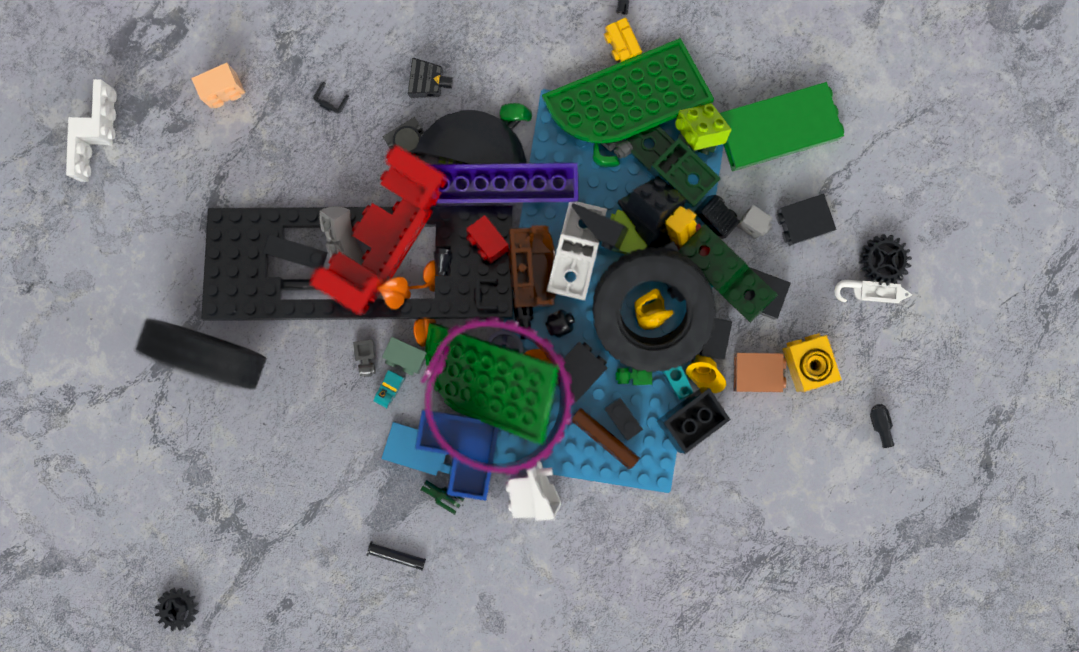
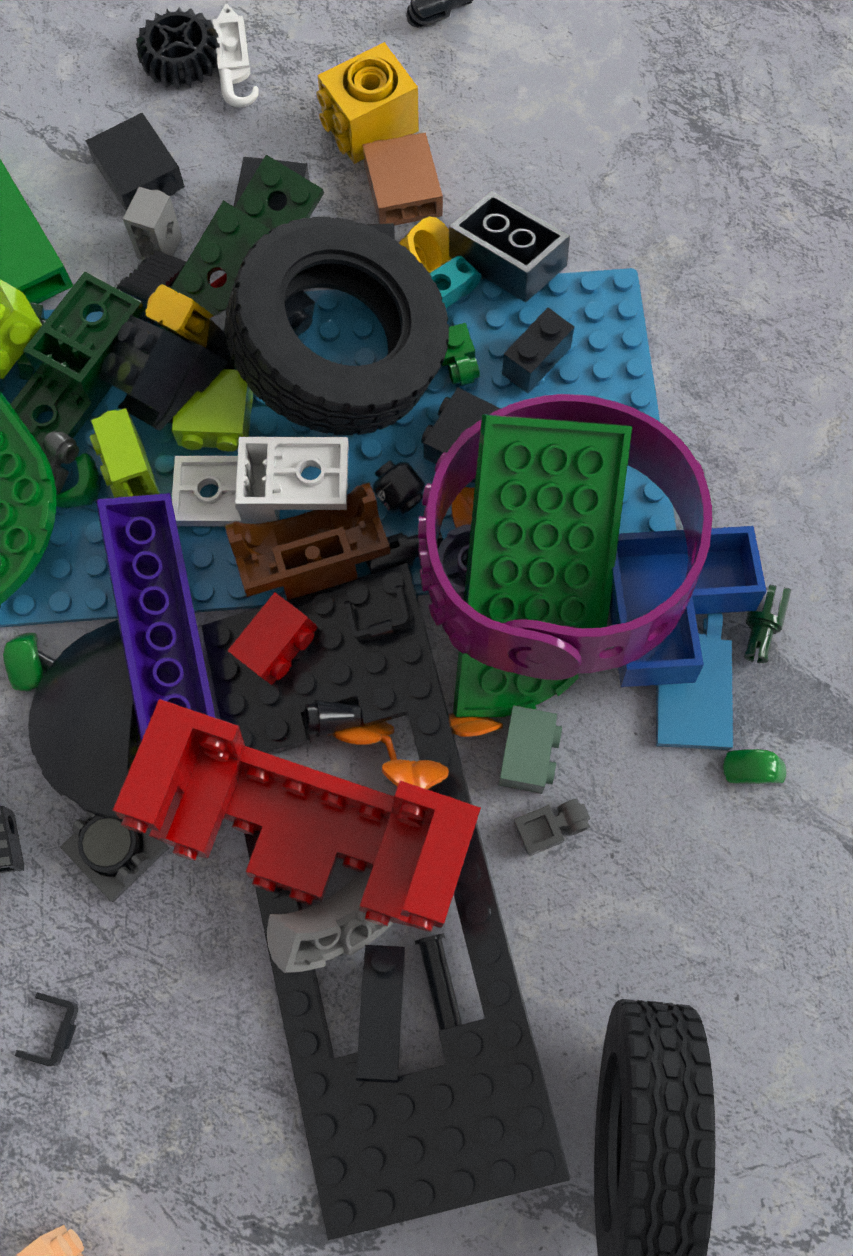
camera: 105 degrees left, 15 degrees down
(368, 466) = (754, 767): none -> green hair
(388, 389) = (599, 765): teal leg -> none
(533, 494) = (730, 452): white piece -> none
(604, 229) = (210, 439): black slope -> none
(605, 438) = (589, 354): reddish brown brick -> none
(607, 181) = (122, 455): none -> lime brick
(653, 314) = (345, 340): yellow helmet -> none

